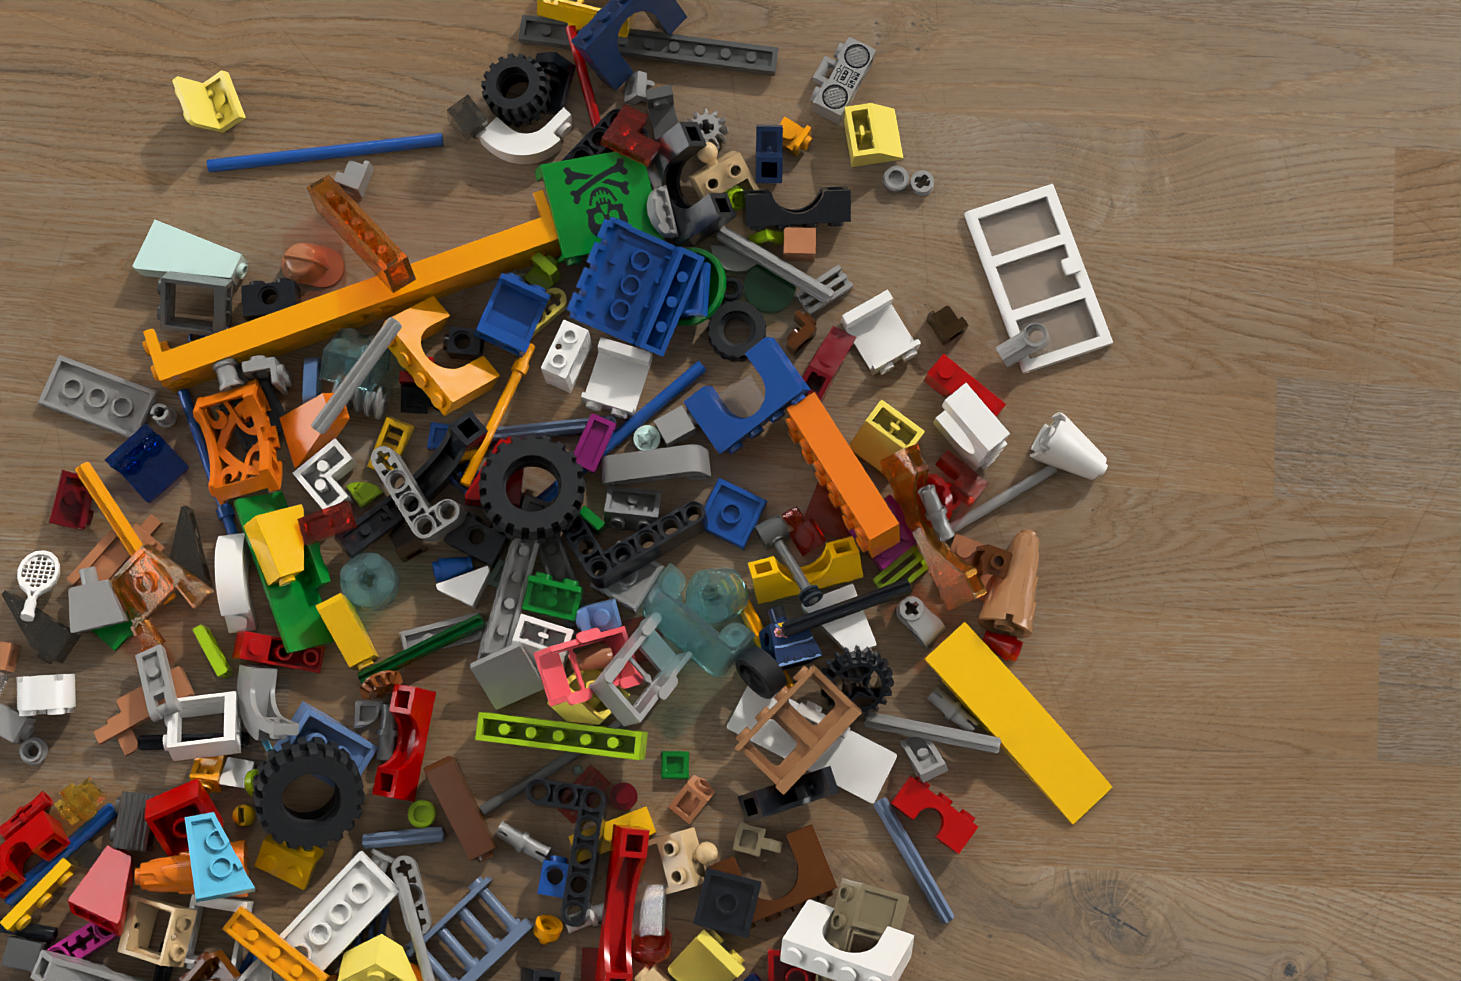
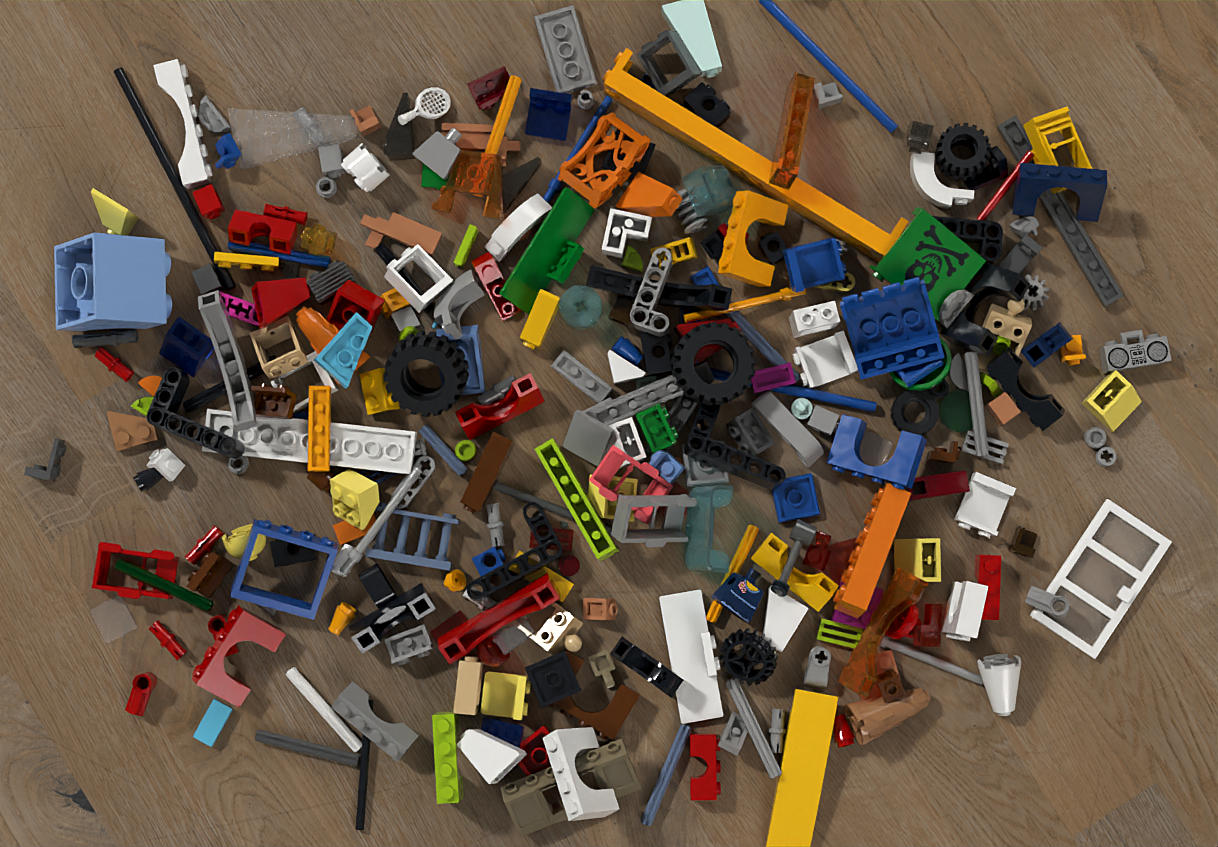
camera: 60 degrees right, 5 degrees up
(157, 682) = (422, 229): light grey plate -> none
(229, 374) = (641, 121): light grey piece -> none
(249, 815) = (385, 347): yellow hinge -> none
(268, 369) = (663, 142): light grey bracket -> none
(278, 544) = (560, 235): yellow slope -> none
(311, 378) = (677, 172): medium blue beam -> none
(312, 265) = (750, 113): nougat piece -> none
(327, 523) = (596, 254): clear red plate -> none
(356, 375) = (700, 201): light grey axle -> none
(366, 712) = (500, 368): light grey tile -> none
(380, 684) = (523, 364): dark orange gear -> none
(425, 647) = (563, 372): dark green axle -> none
(544, 271) = (857, 261): lime bracket -> none
(592, 520) = (723, 415): green tile -> none
(594, 657) = (639, 482): nougat cone -> none
(625, 138) = (983, 246): clear red tile -> none
(675, 765) = (612, 582): green tile -> none
(722, 582) = (746, 527): clear light blue brick -> none
(760, 672) = (708, 592): black tyre -> none
(810, 739) = (691, 656): medium nougat window -> none
(846, 607) = (790, 616): black axle -> none
(936, 512) = (893, 627): light grey pin -> none

